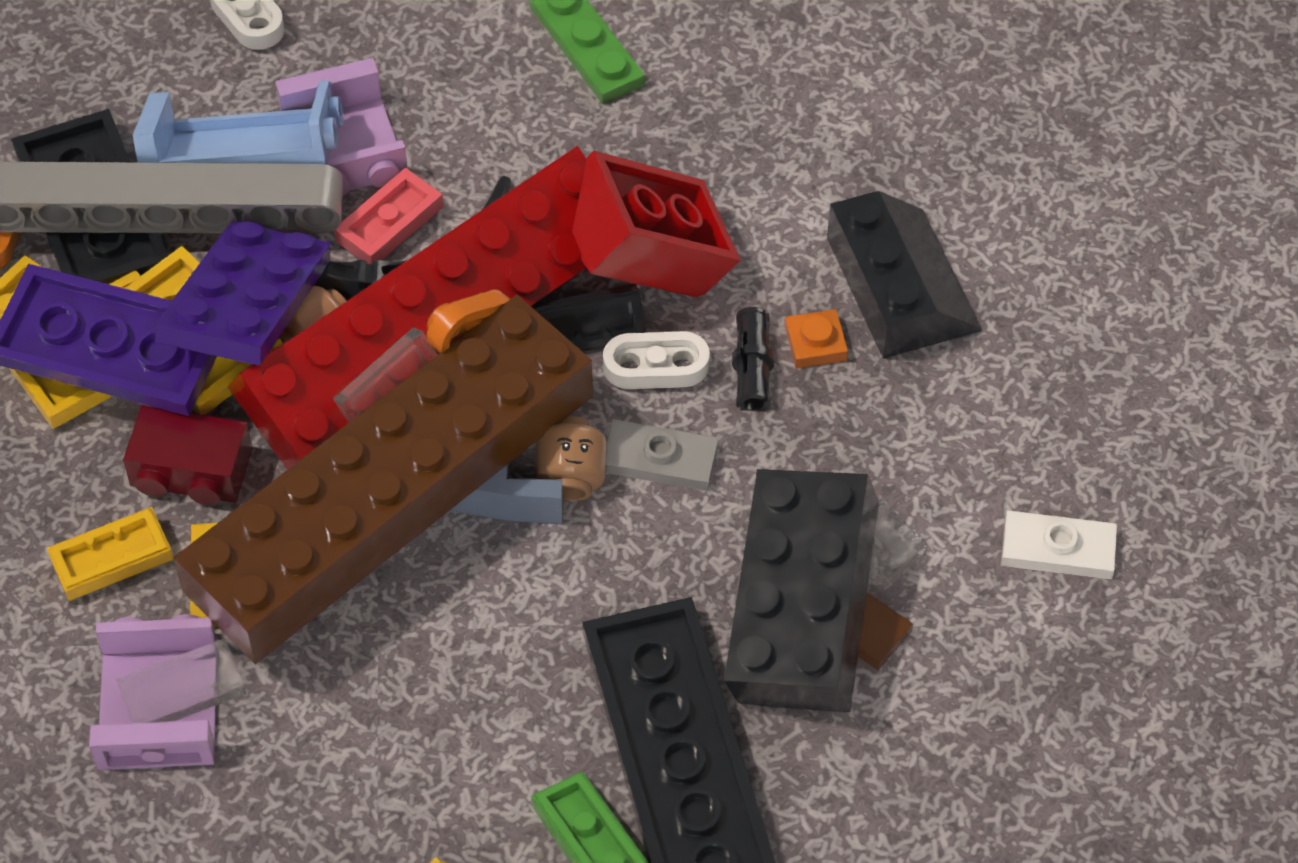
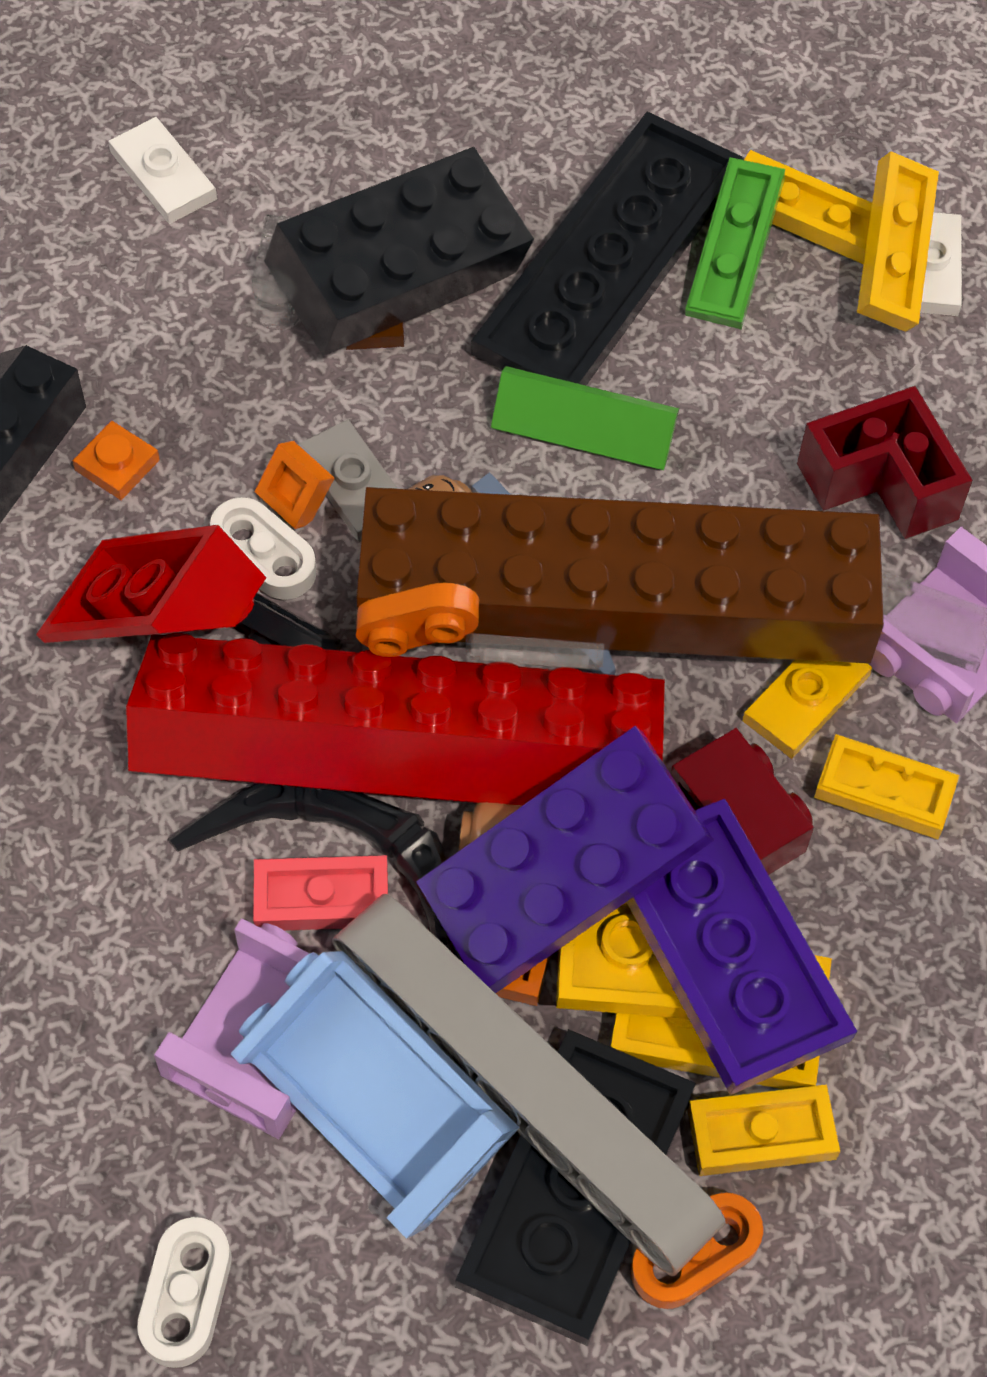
camera: 135 degrees left, 5 degrees up
(311, 767) = (890, 450): none -> dark red brick
(556, 617) = (584, 418): none -> bright green tile
(684, 410) = (294, 484): none -> orange plate
(753, 359) = (218, 460): black pin -> none

